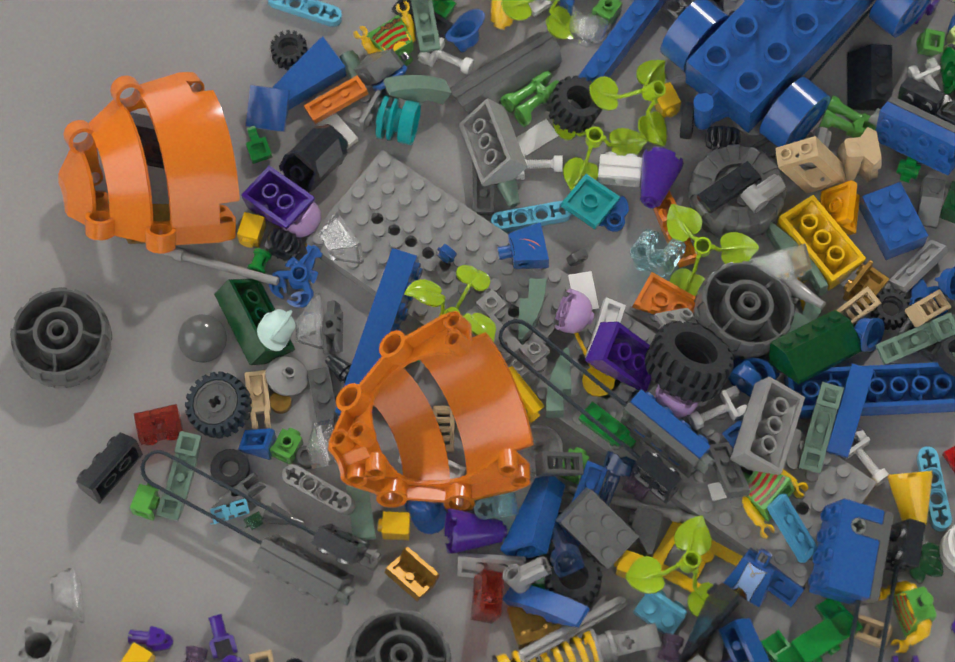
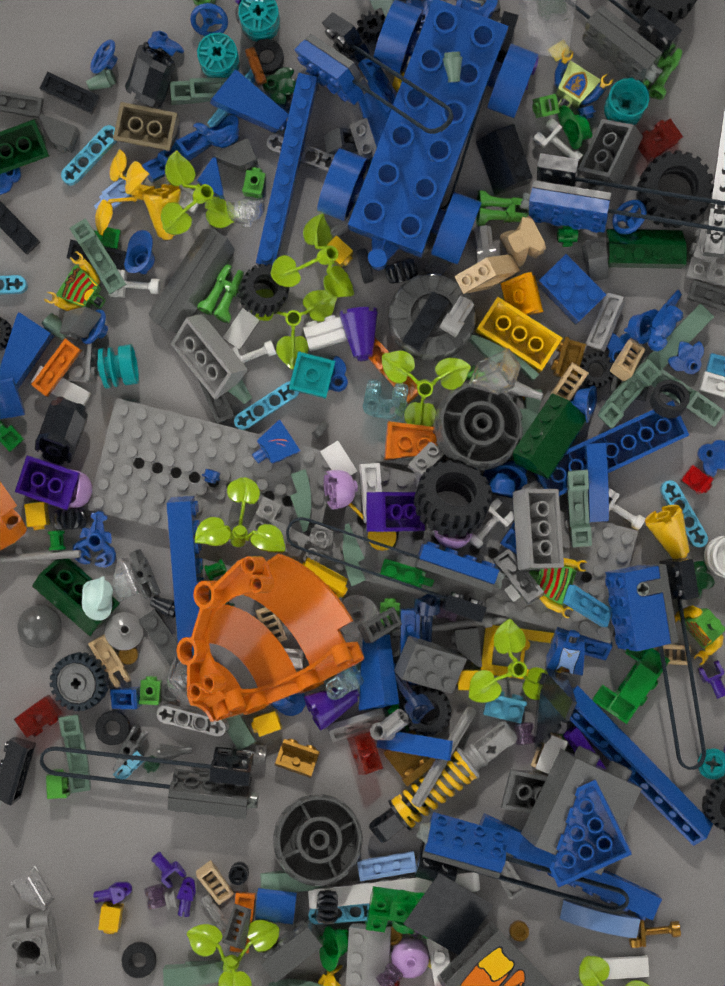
camera: 25 degrees left, 20 degrees up
(341, 241) = (117, 504): clear slope -> none
(418, 88) = (122, 330): sand green slope -> none

